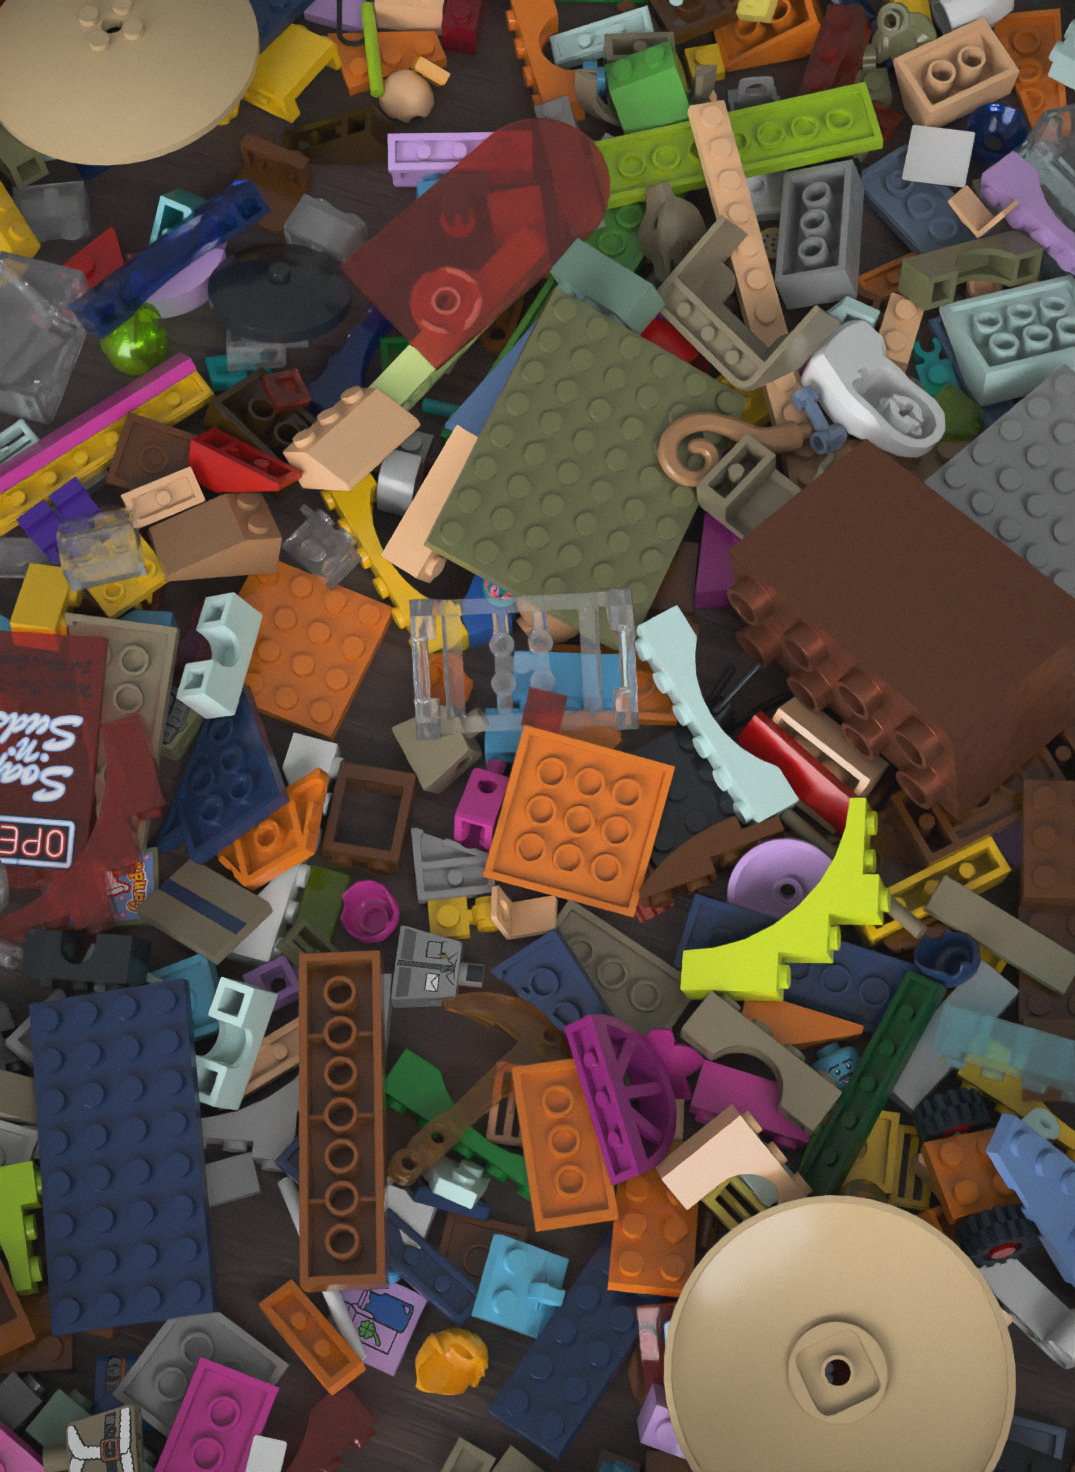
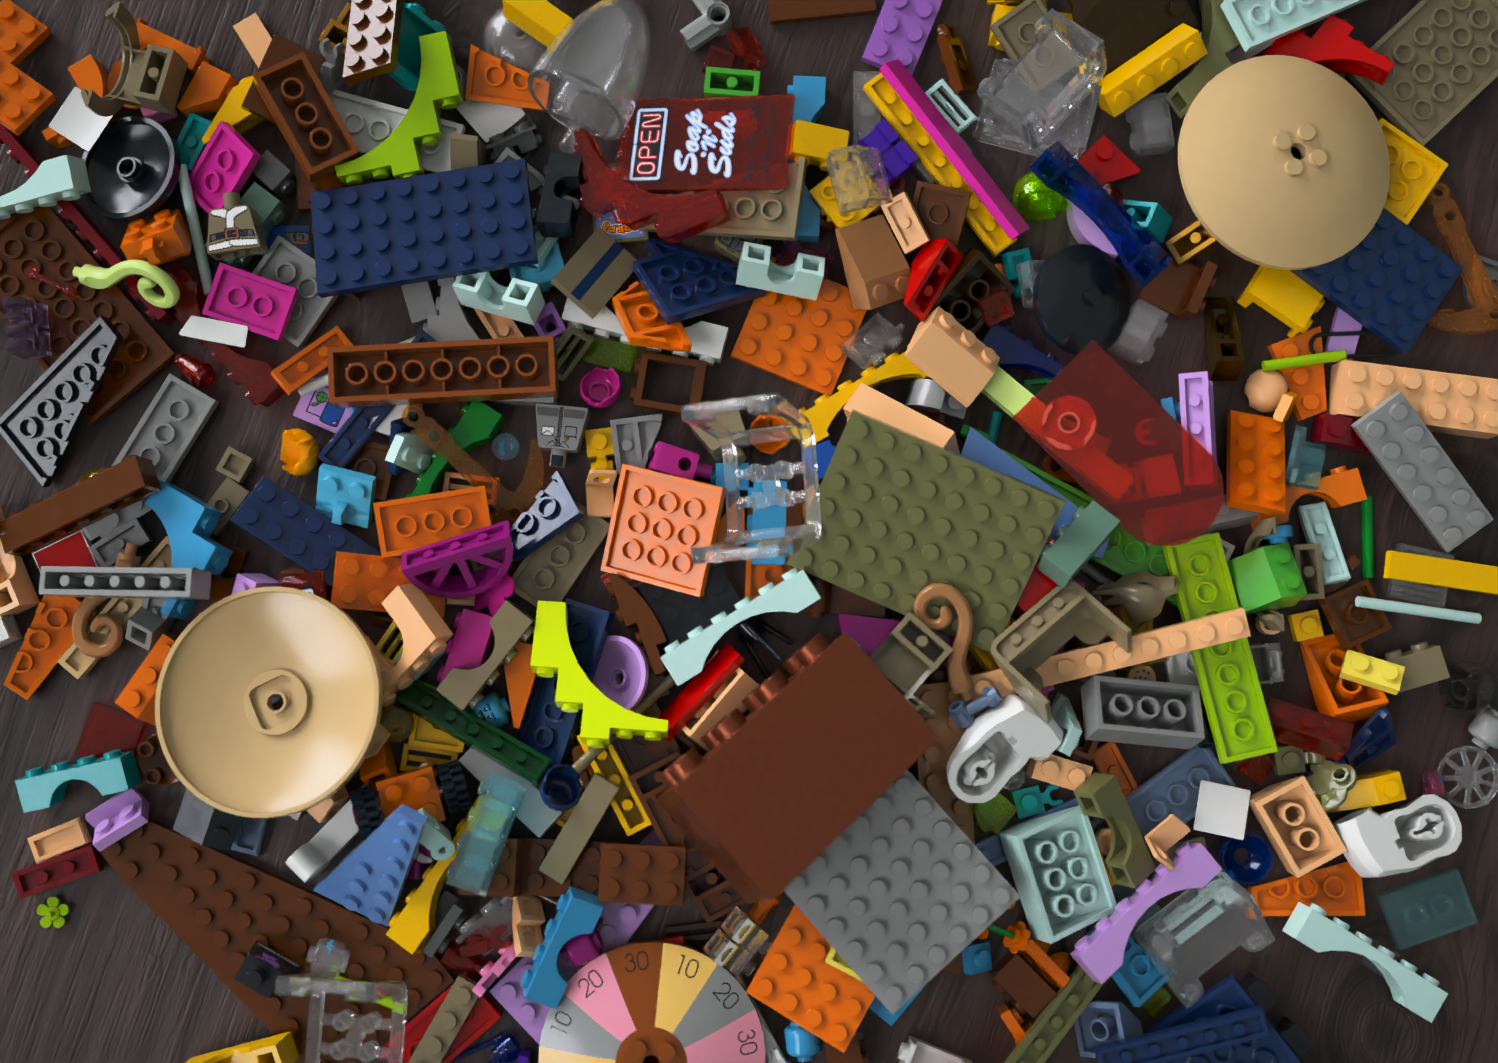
camera: 90 degrees right, 15 degrees up
(210, 164) = (1191, 243): none -> pearl gold slope
(451, 1054) = (505, 447): none -> clear light blue tile
(499, 52) = (1304, 461): none -> clear light blue panel
(502, 97) = (1255, 463): none -> orange plate
(544, 710) = (735, 501): clear red tile -> none

